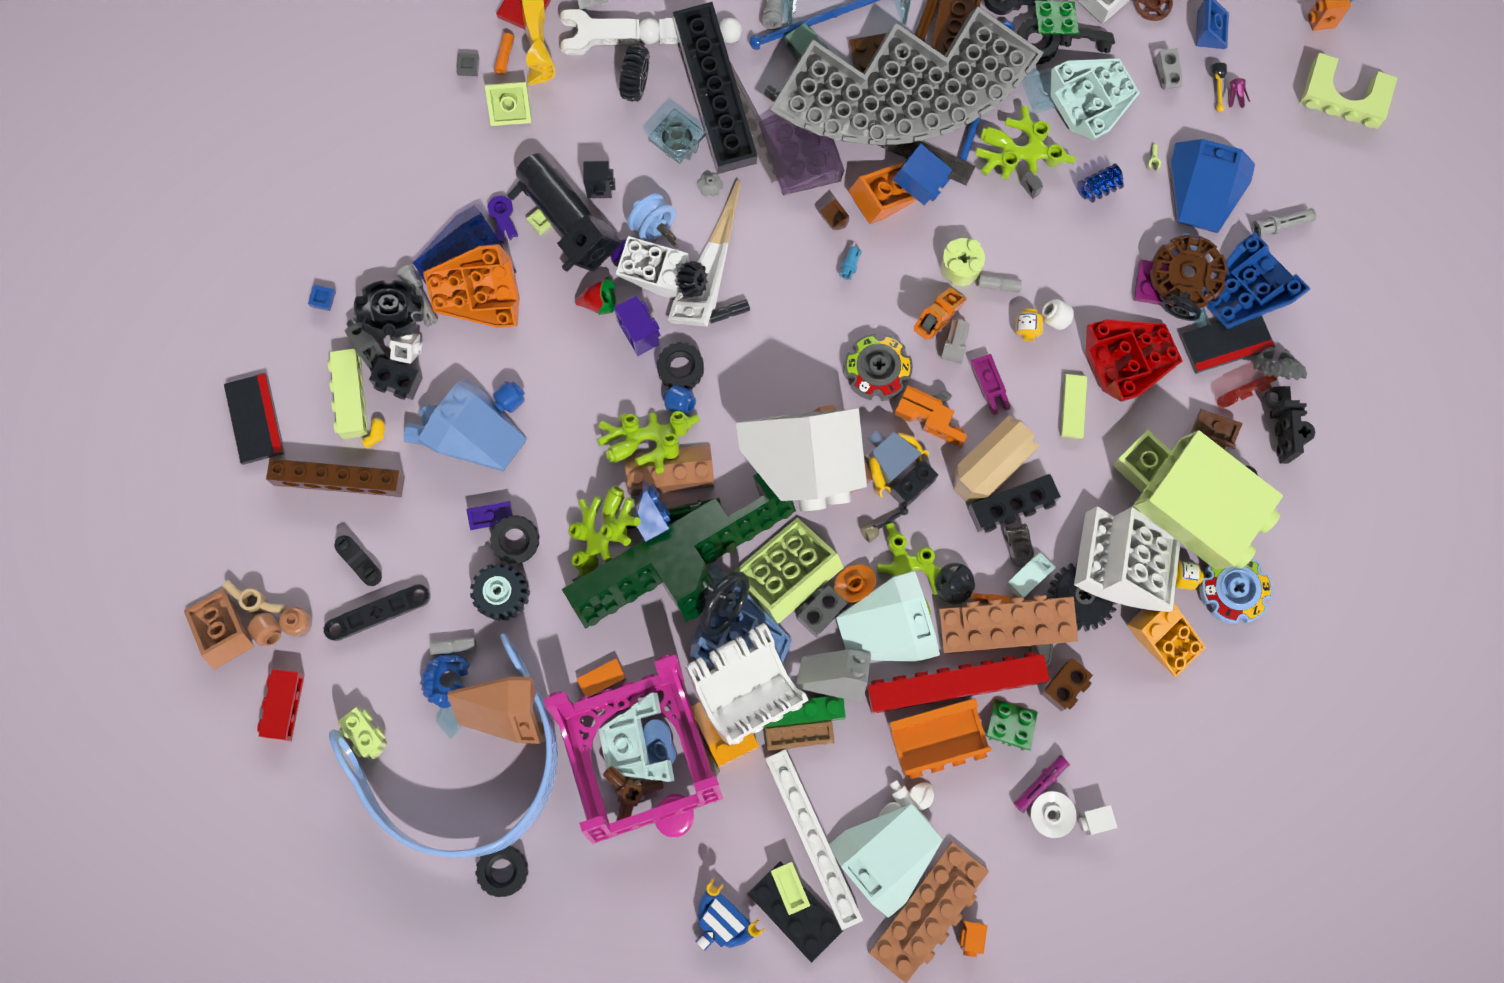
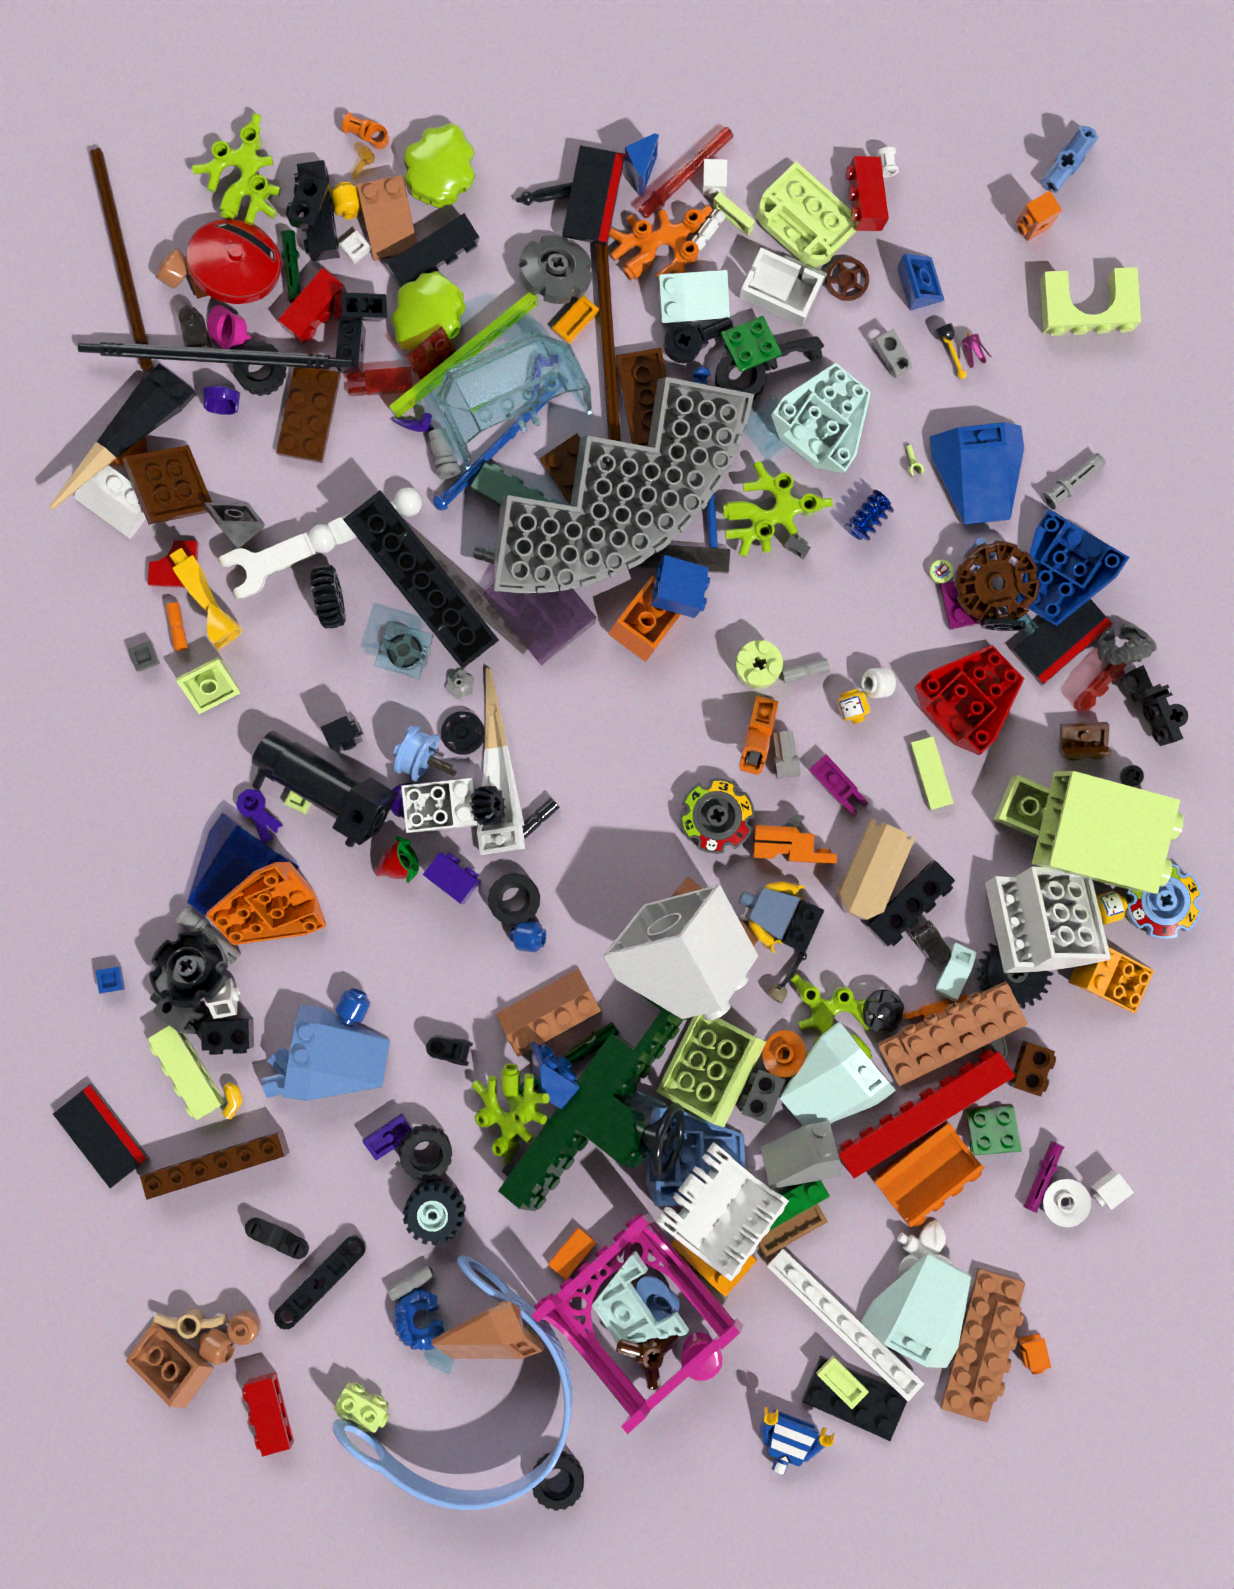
camera: 20 degrees left, 10 degrees up
(575, 467) = (451, 1049): none -> black piece
(663, 434) = (517, 981): lime plant -> none
(696, 222) = (463, 733): none -> black wheel
(835, 215) = (605, 667): reddish brown plate -> none
(849, 266) = (642, 715): dark azure pin -> none
(1144, 250) = (941, 571): none -> yellowish green tile

